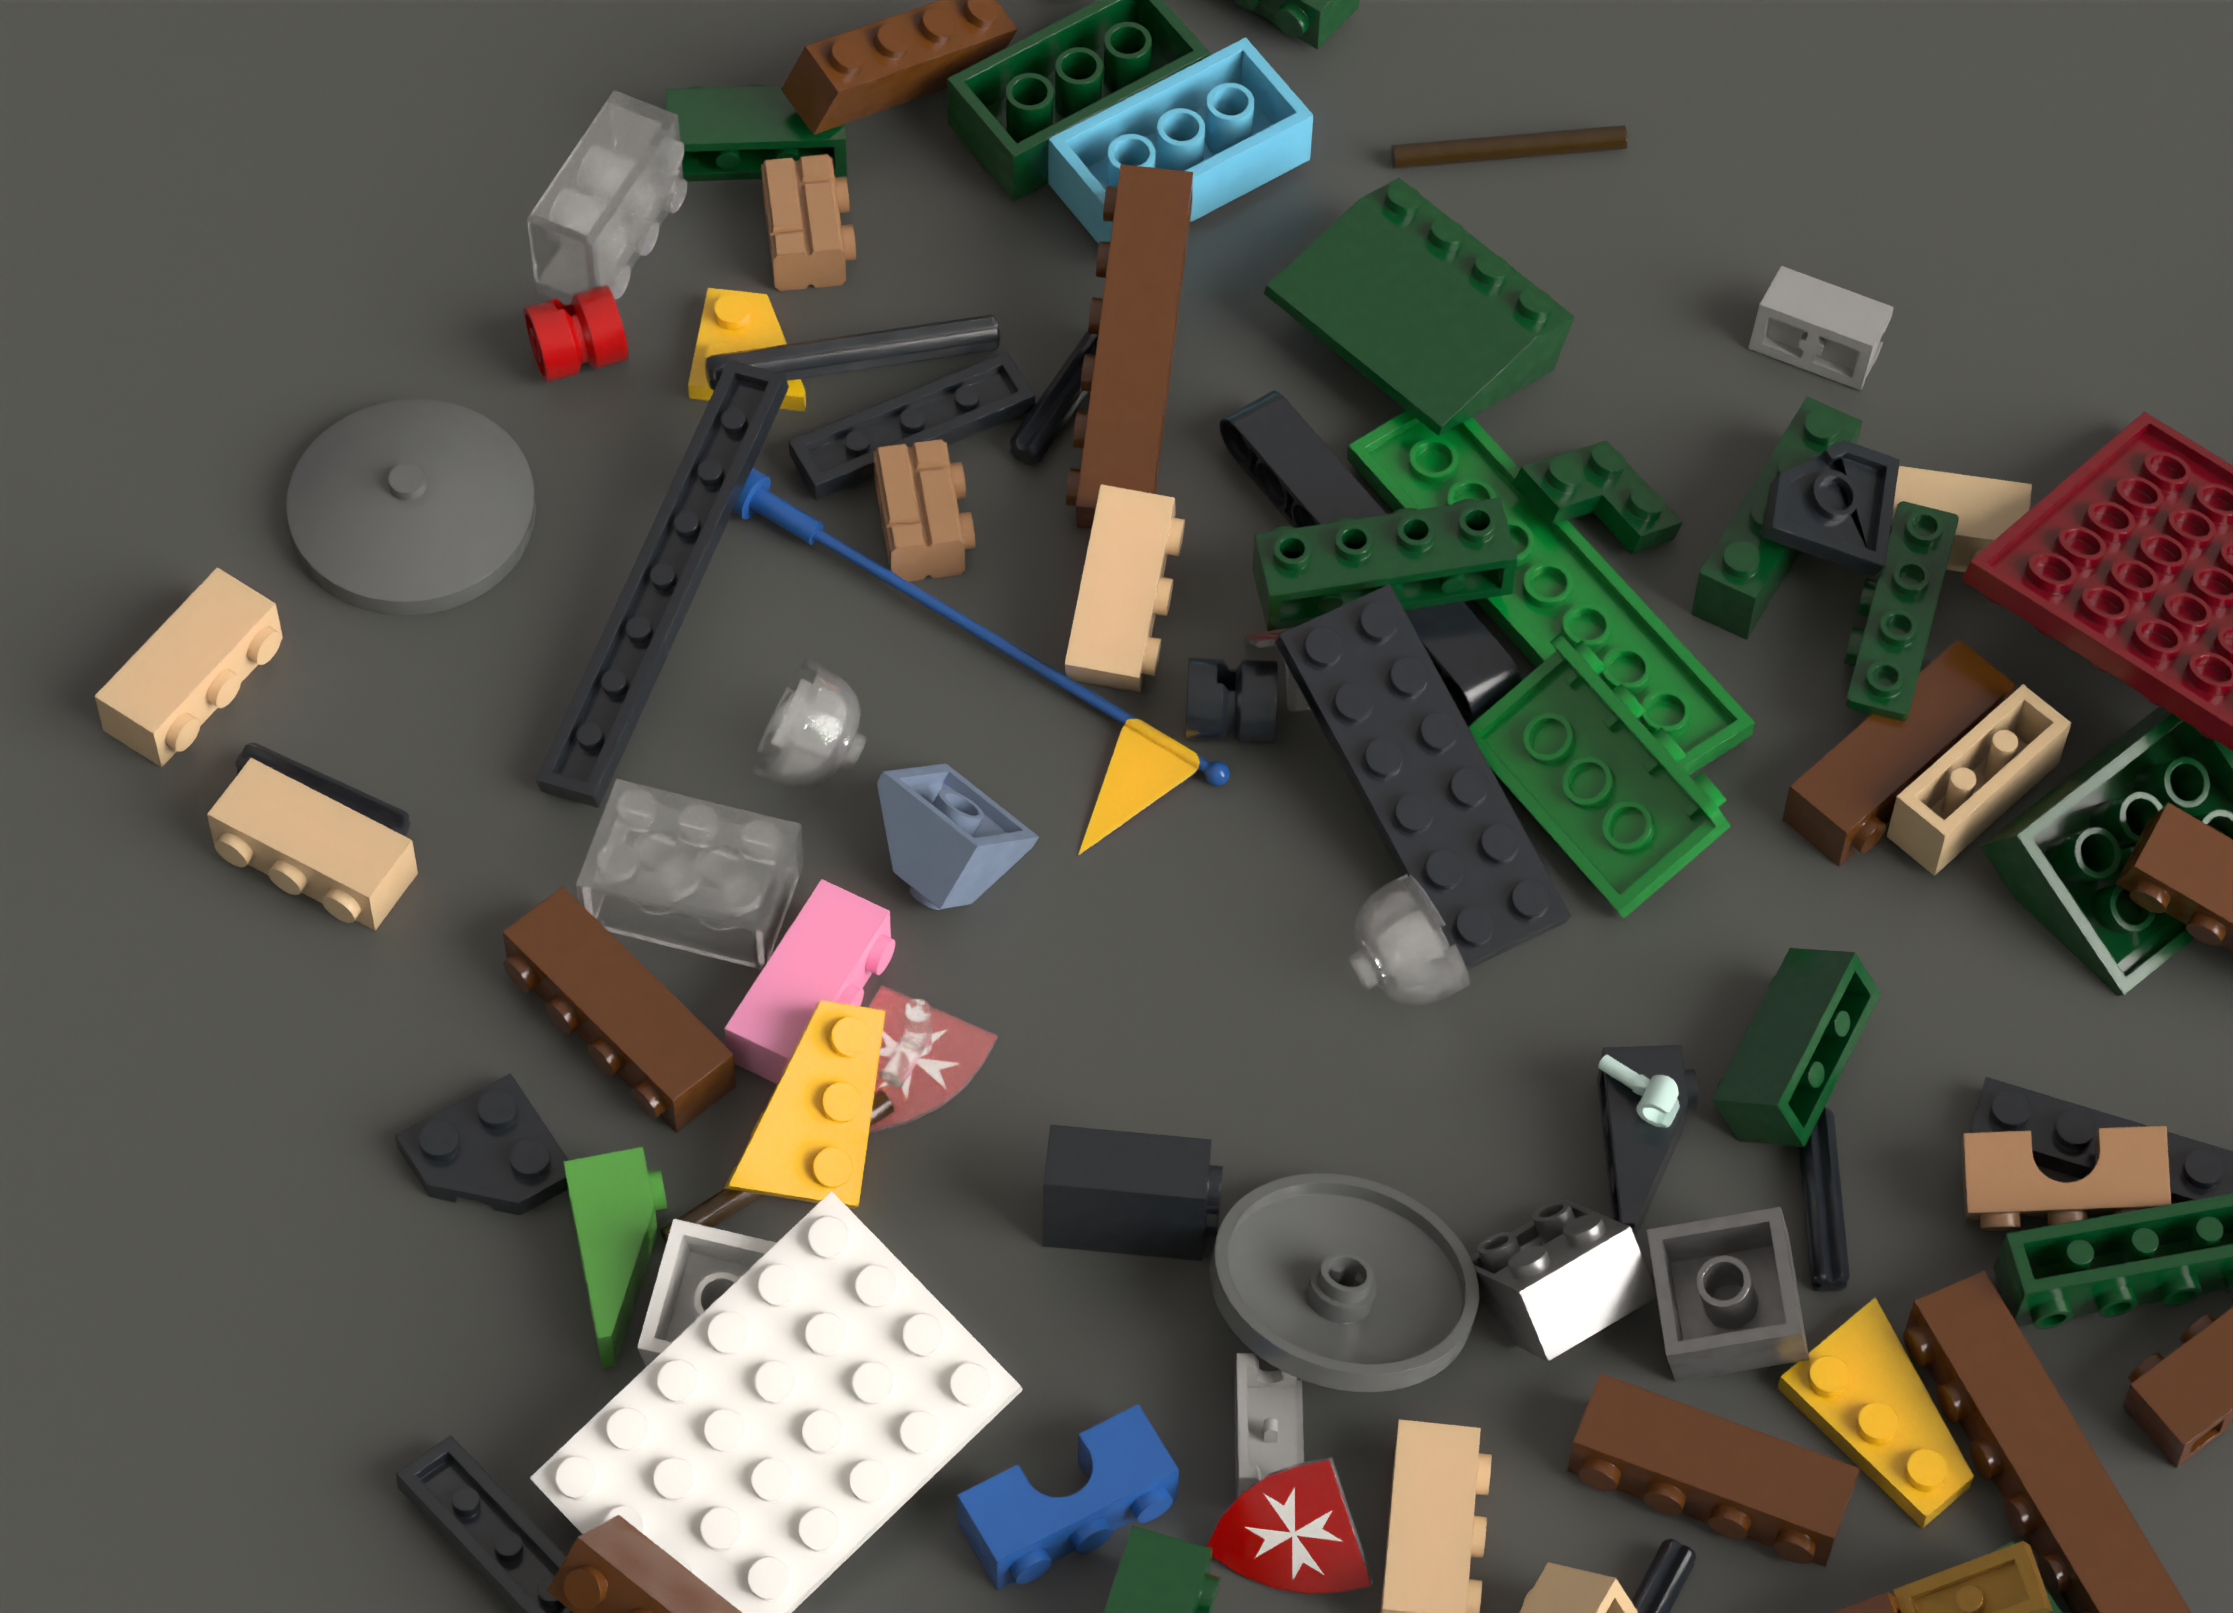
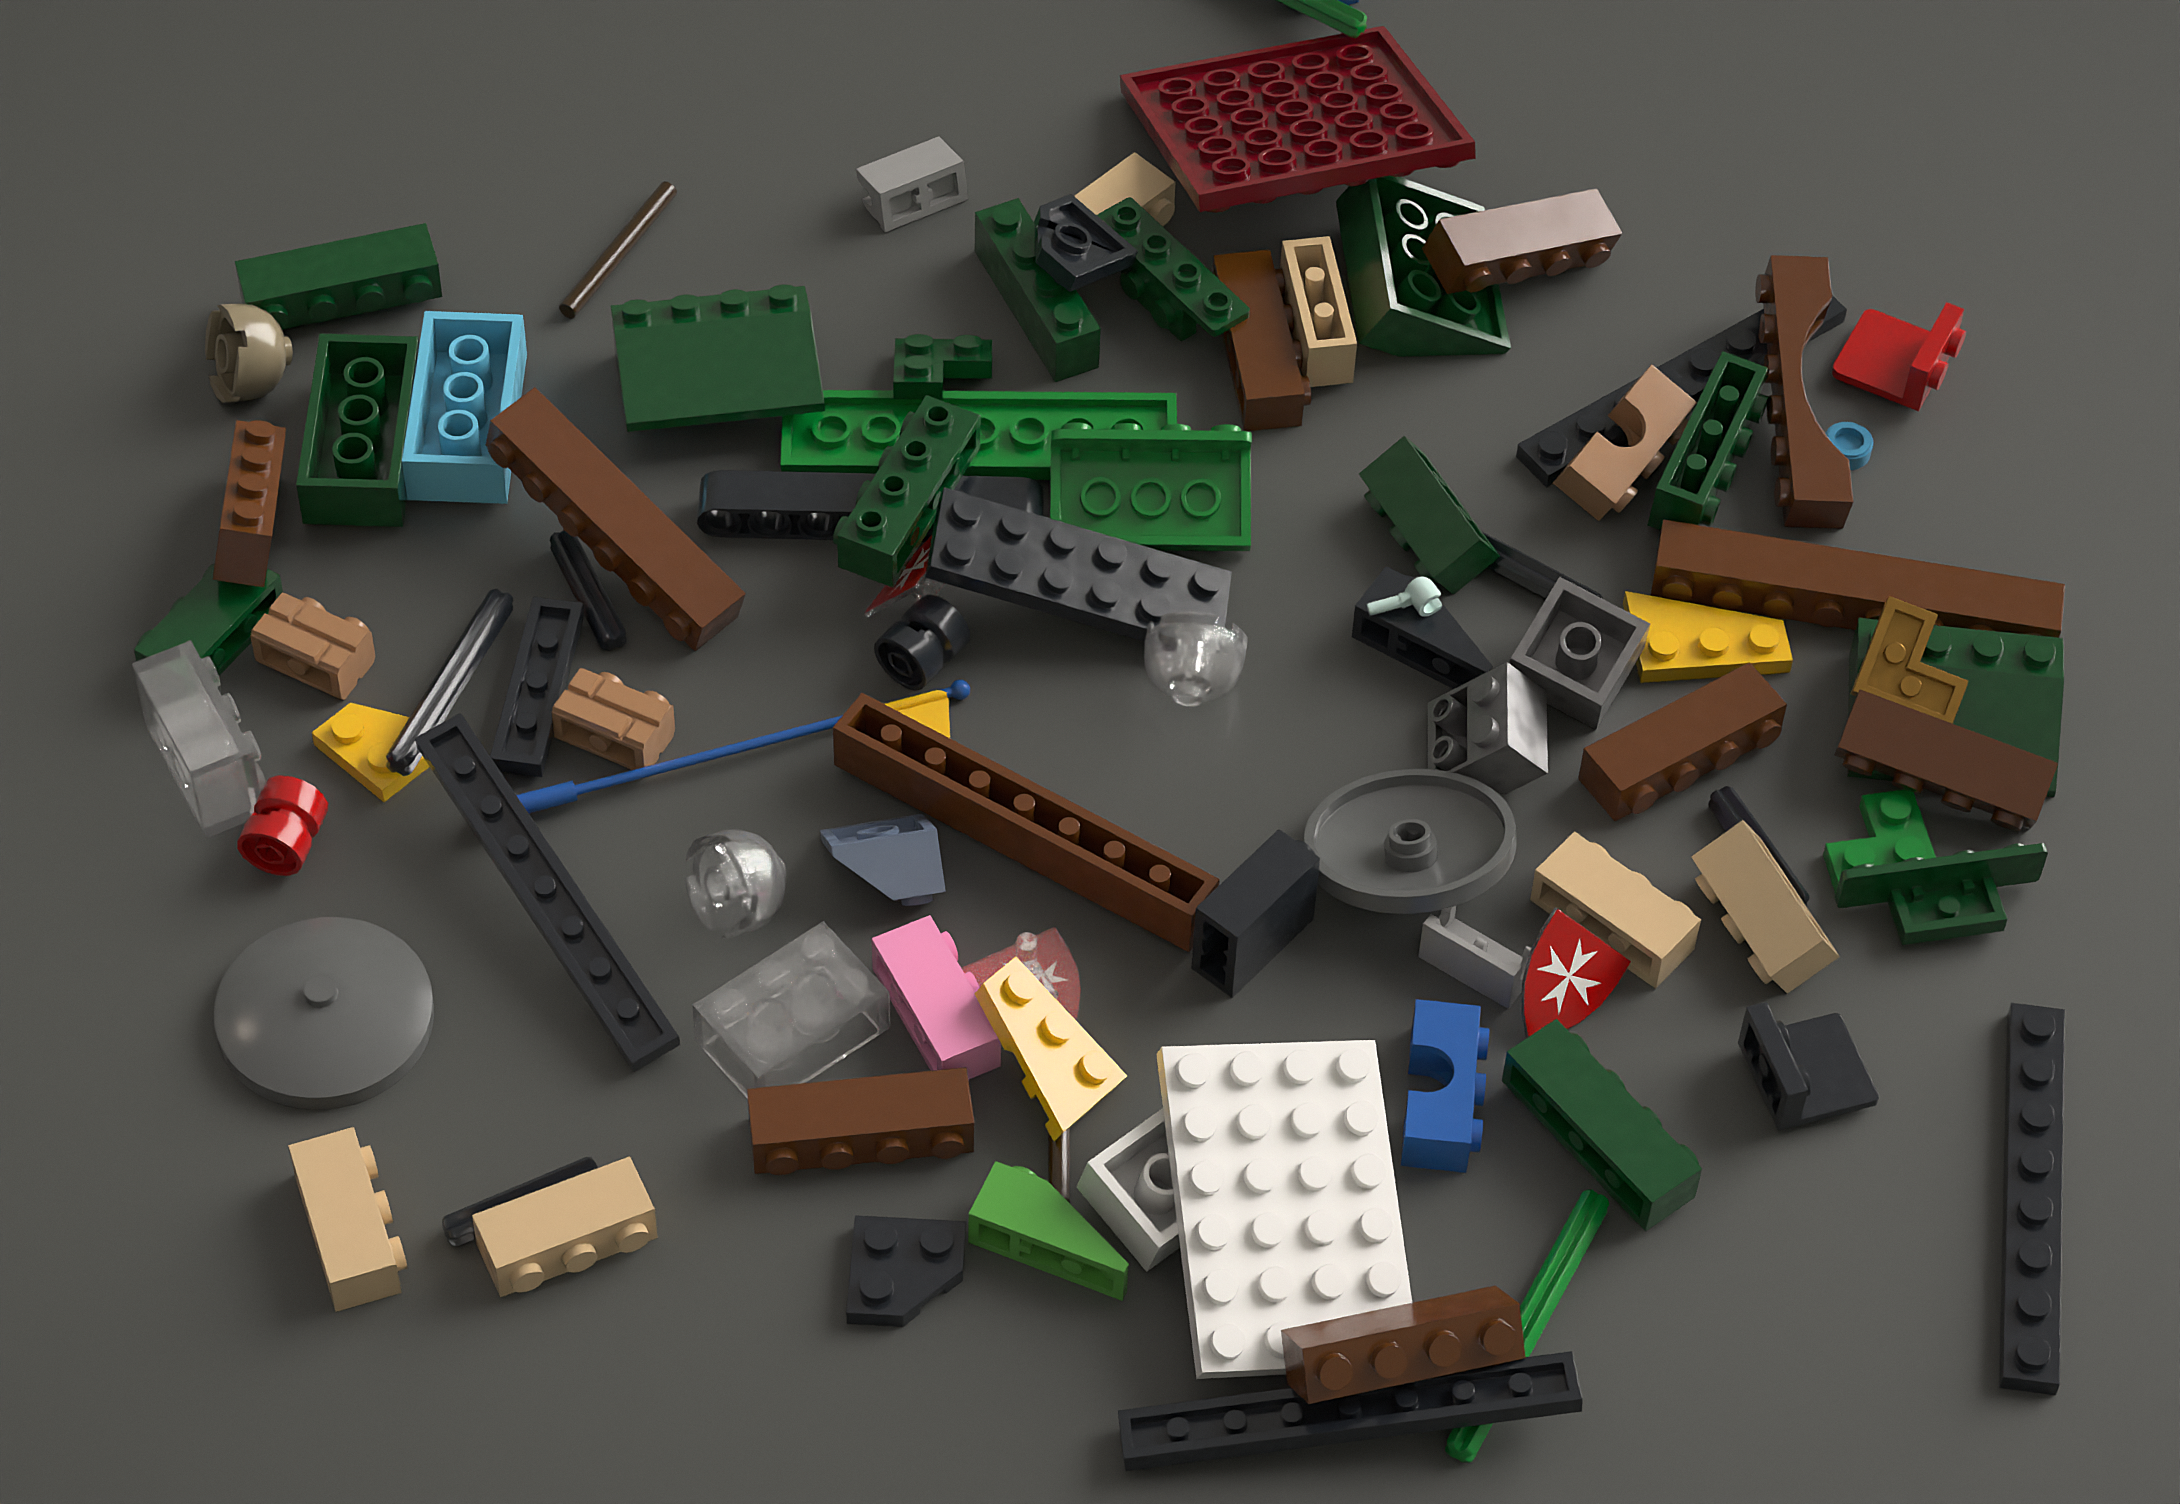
camera: 55 degrees left, 5 degrees down
(1078, 908) = (1022, 820): none -> reddish brown brick
(1123, 589) = (790, 642): tan brick -> none

